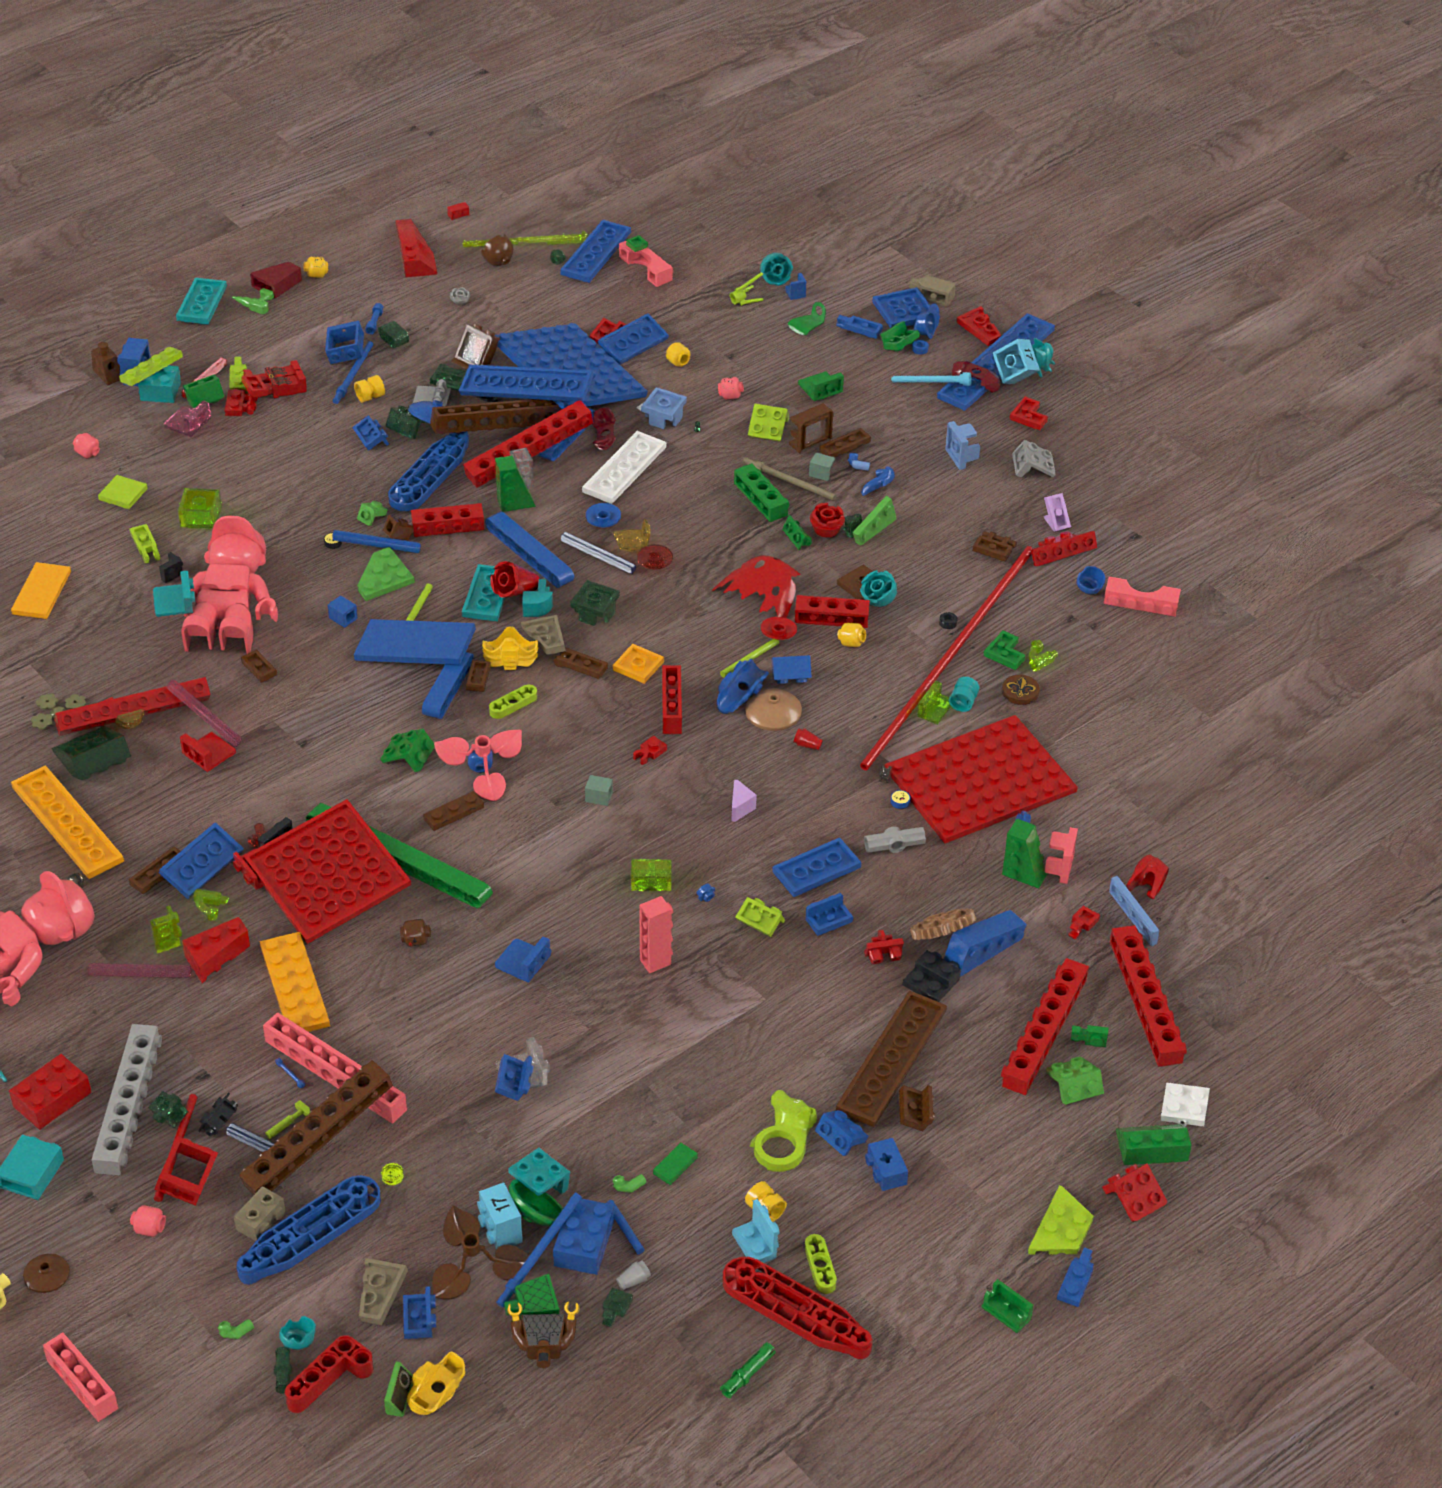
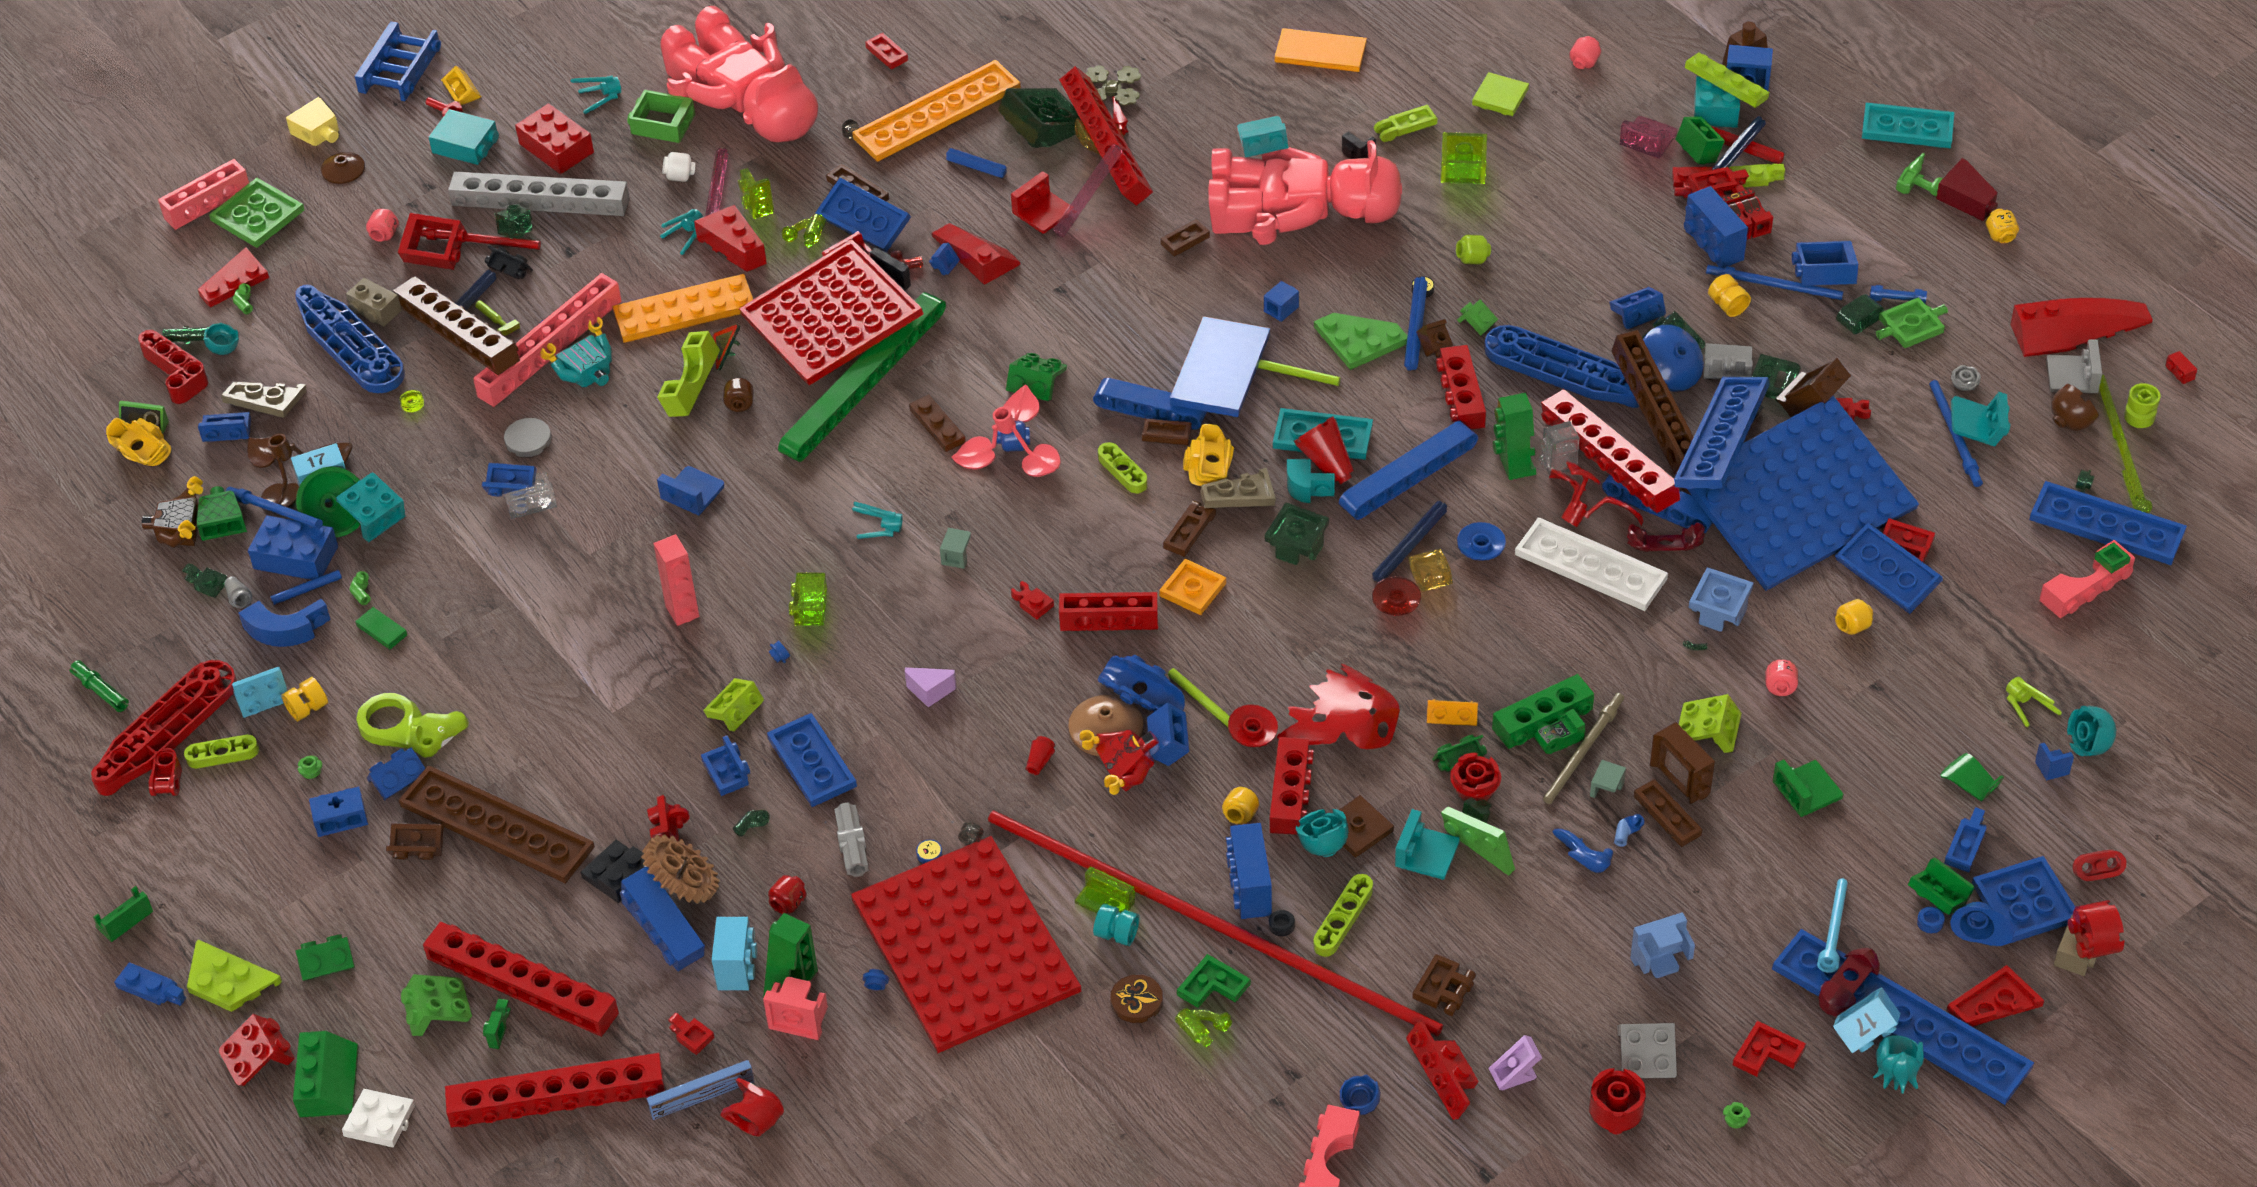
camera: 95 degrees right, 5 degrees up
(36, 996) = (650, 100): none -> bright green window
(109, 995) = (678, 166): none -> white head
(110, 1333) = (256, 212): none -> bright green plate
(138, 797) = (976, 163): none -> blue axle
(185, 982) = (687, 222): none -> teal plant
(202, 1343) = (223, 285): none -> wing
(209, 370) = (1741, 143): none -> dark blue axle
(253, 792) = (977, 254): none -> red wedge
(262, 808) = (944, 259): none -> blue tile
(300, 510) = (1473, 249): none -> lime head
(303, 386) = (1715, 227): none -> blue brick
(350, 946) = (724, 341): none -> piece
(359, 1040) = (583, 361): none -> teal torso
(404, 313) = (1911, 322): none -> bright green plate
(409, 968) = (699, 356): none -> lime arch
(448, 1081) = (527, 437): none -> light grey tile
(459, 247) = (2080, 371): none -> light grey bracket
(496, 223) = (2142, 405): none -> lime wheel
(503, 286) = (1980, 421): none -> teal bracket
(540, 301) = (1969, 464): none -> blue bar
(566, 832) = (890, 520): none -> teal plant
(577, 466) = (1576, 509): none -> red plant
(677, 1246) = (283, 629): none -> blue arch
(759, 535) = (1452, 712): none -> light orange hinge
(780, 483) = (1561, 733): none -> green leg
(817, 687) = (1123, 755): none -> red torso
(835, 1200) = (309, 767): none -> bright green plate
(853, 1297) = (165, 773): none -> red piece
(876, 901) = (751, 819): none -> clear green arm
(877, 278) = (2098, 866): none -> red plate
(882, 550) = (1425, 849): none -> teal bracket
(916, 623) = (1249, 871): none -> blue brick
(944, 267) = (2096, 929): none -> red brick
(949, 873) = (787, 894): none -> red head
(963, 600) = (1341, 914): none -> lime beam
(1016, 891) = (733, 953): none -> medium azure brick
(1036, 1156) = (324, 958): none -> green bracket
(1077, 430) = (1734, 1120): none -> bright green plate
(1080, 471) = (1617, 1100): none -> red brick

